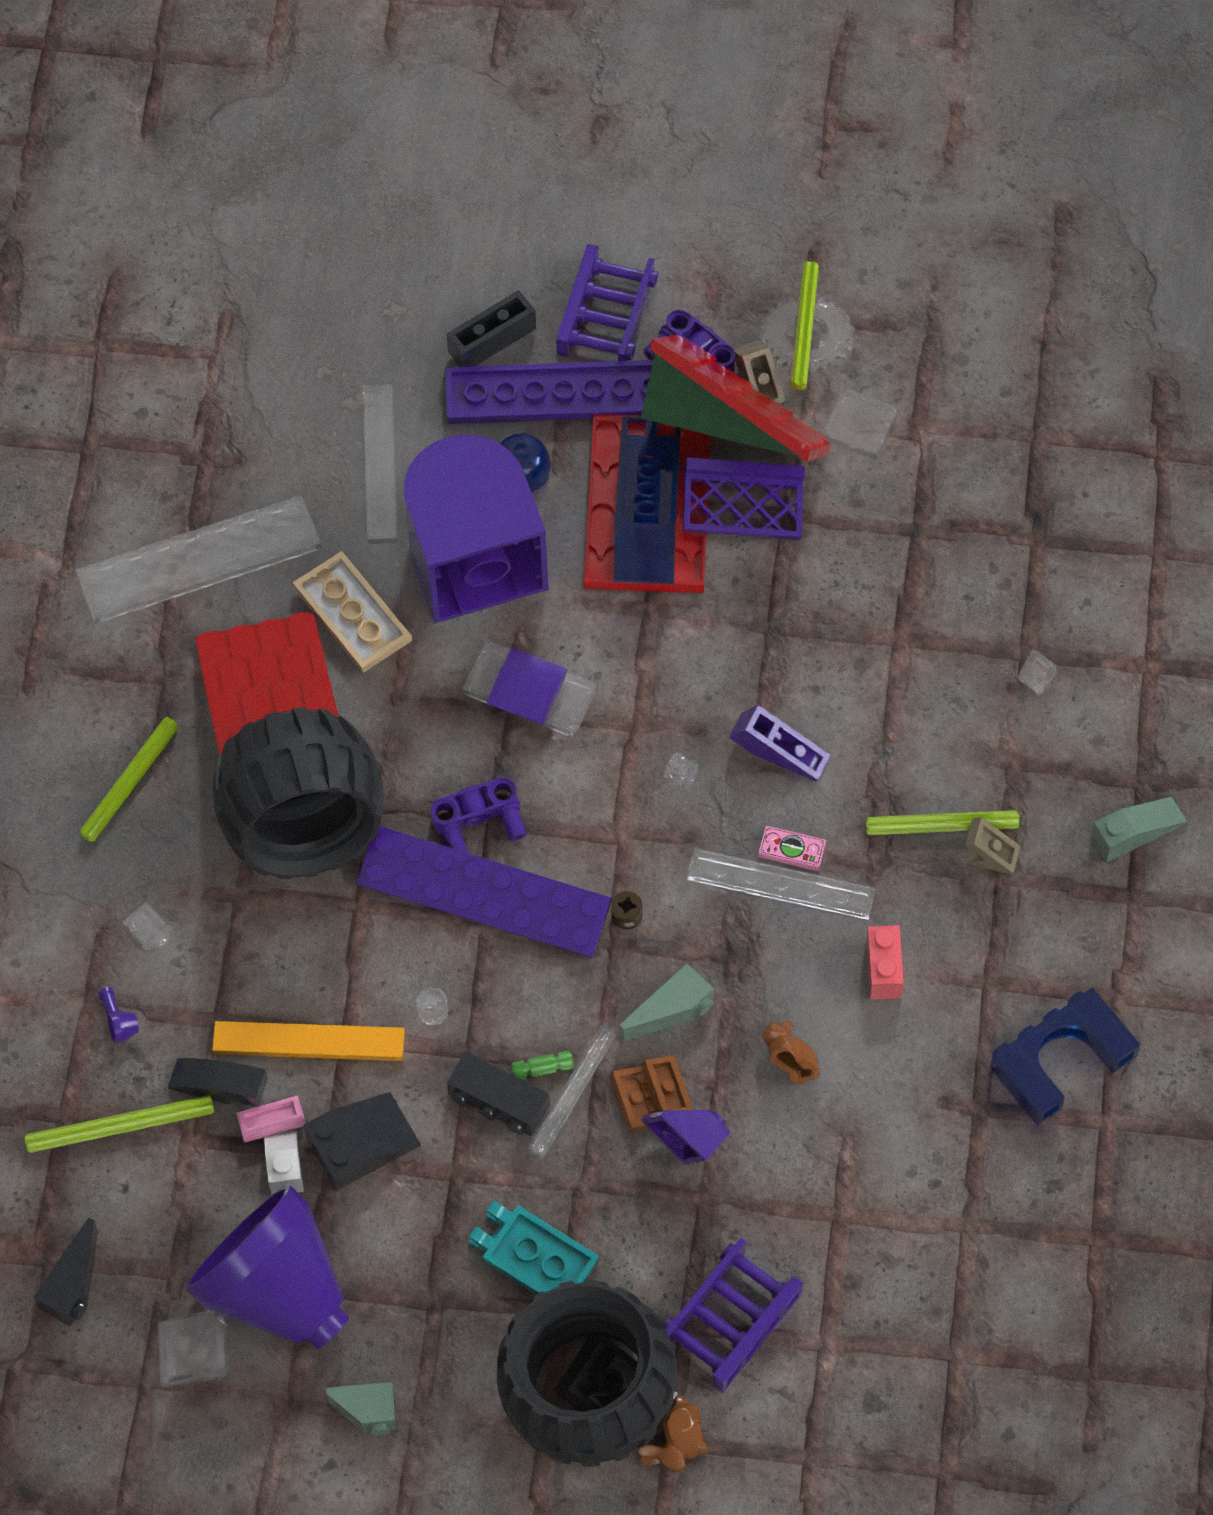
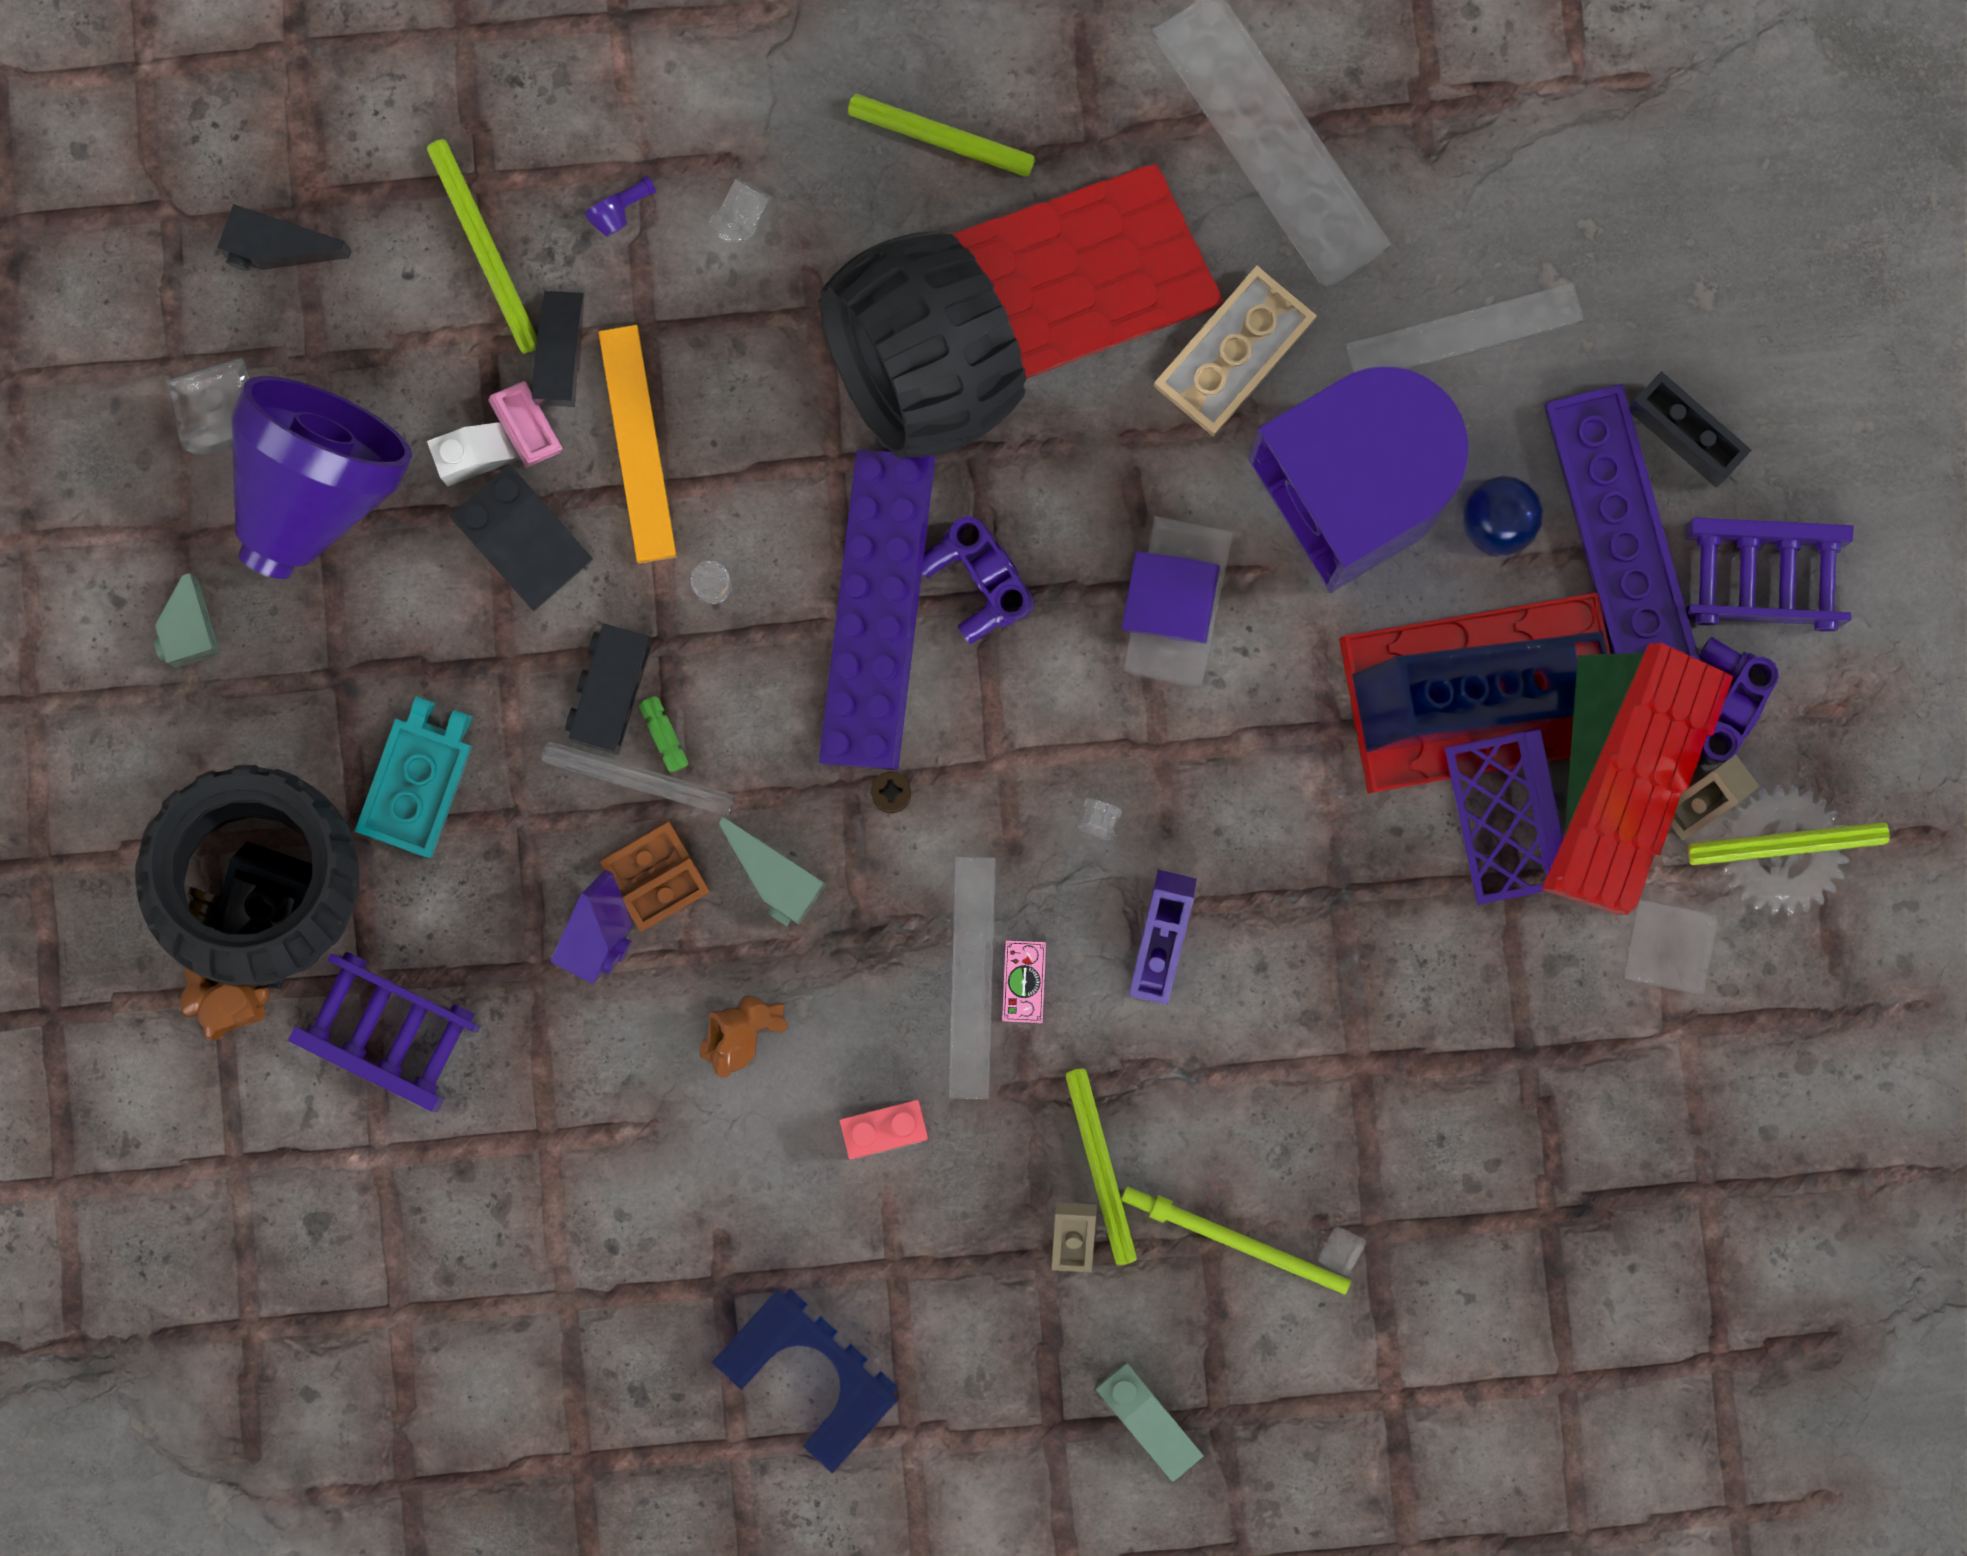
camera: 80 degrees right, 20 degrees up
(984, 786) = (1162, 1209): none -> lime bar

